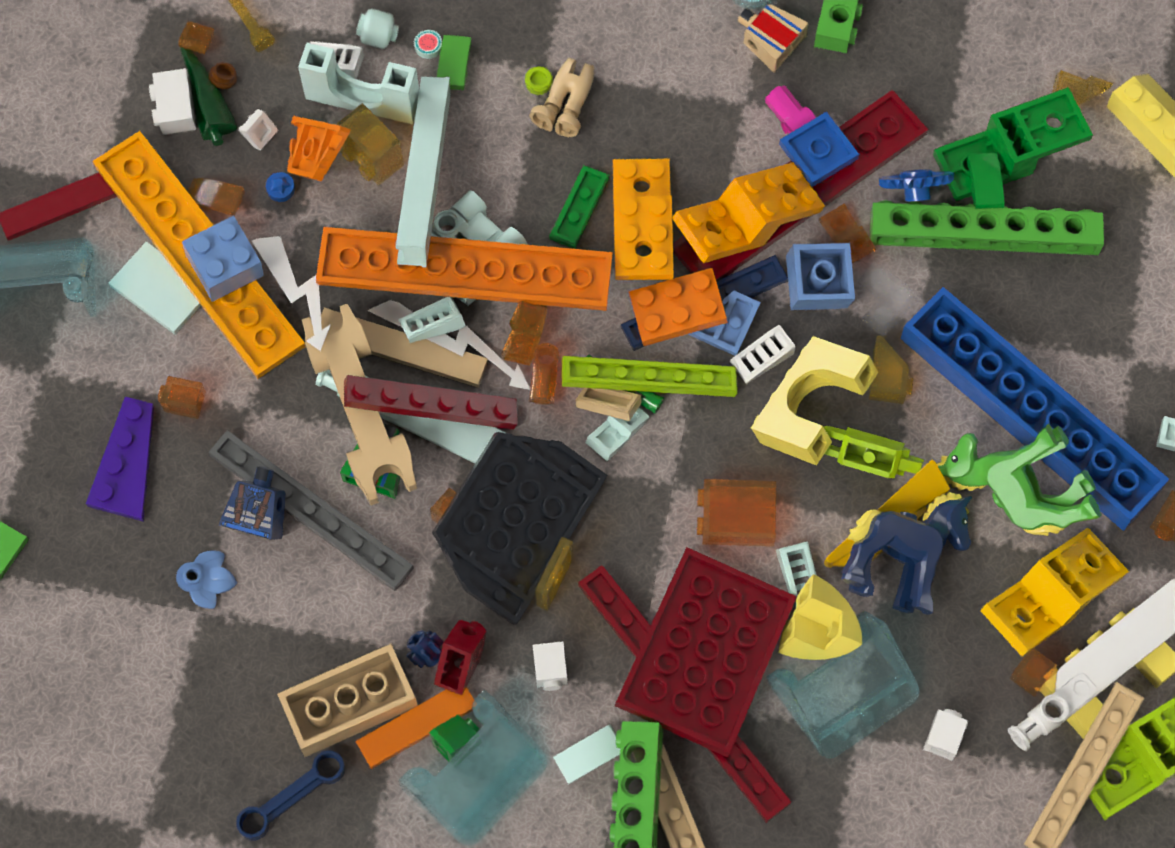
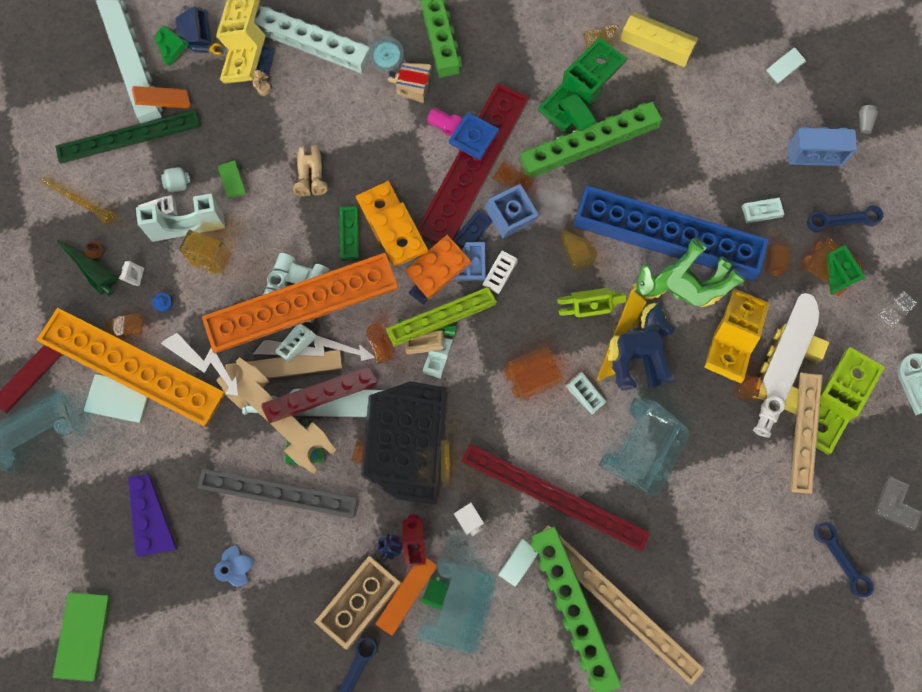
camera: 25 degrees left, 5 degrees up
(173, 101) = (70, 280): white brick -> none
(182, 397) = (164, 461): clear orange brick -> none
(196, 37) = (65, 233): clear orange tile -> none
(223, 258) = (148, 364): medium blue brick -> none
(256, 507) = (244, 509): torso -> none
(315, 147) = (172, 269): orange wing -> none
(423, 172) = (246, 255): light aqua tile -> none
(428, 44) = (211, 175): tile -> none
(526, 332) = (356, 324): clear orange slope -> none
(538, 80) = (288, 168): lime tile -> none
(706, 652) = (557, 468): dark red plate -> none
(748, 212) = (452, 192): light orange bracket -> none
(817, 366) = (535, 265): light yellow arch -> none
(821, 624) = (614, 418): light yellow brick -> none
(916, 182) = (539, 130): blue gear -> none
(946, 734) = (716, 448): white brick -> none

